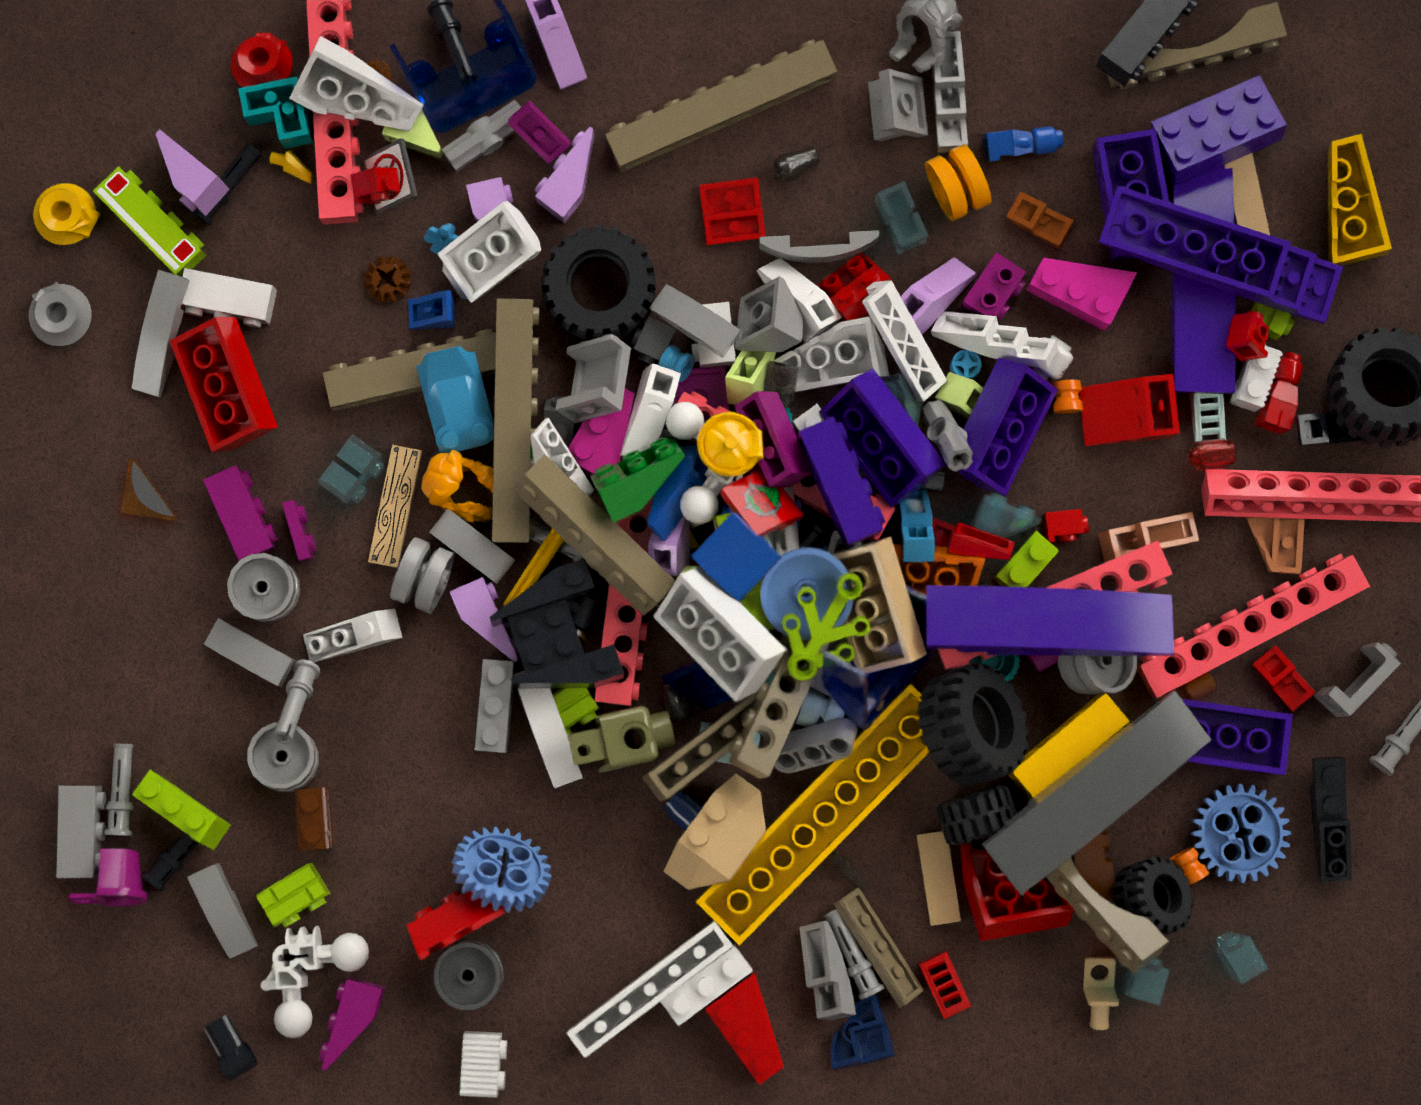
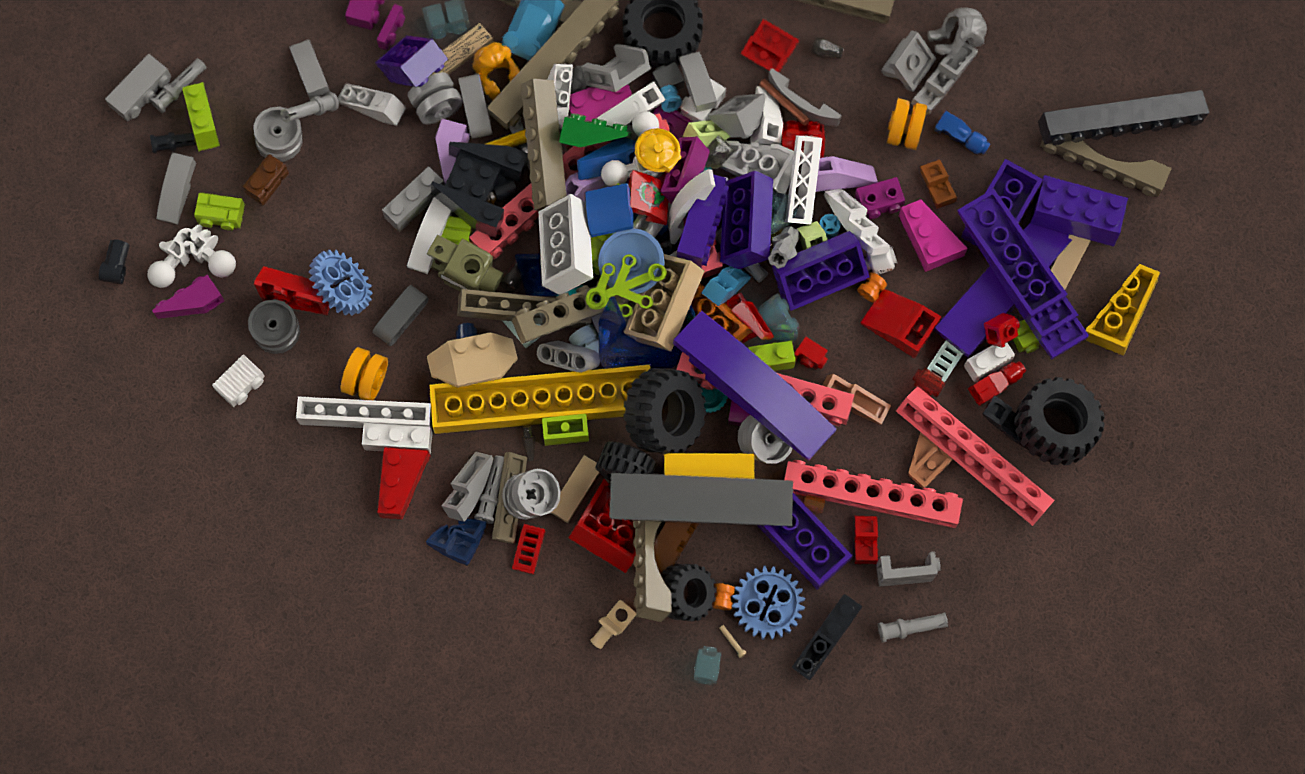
camera: 40 degrees right, 10 degrees down
(117, 881) = (133, 126): magenta container -> none
(248, 578) = (346, 39): light grey wheel -> none
(366, 558) = (412, 61): none -> dark purple brick
(592, 846) = (400, 315): none -> dark grey beam
(617, 946) = (364, 374): none -> light orange wheel
(803, 264) = (784, 102): none -> copper bar
(809, 474) = (695, 189): none -> white slope
(878, 826) = (565, 429): none -> lime brick
(895, 206) = (859, 119): clear light blue piece -> none
(904, 929) = (531, 494): none -> light grey wheel
(1147, 983) = (642, 635): clear light blue piece -> none
(1236, 903) = (741, 653): none -> tan piece

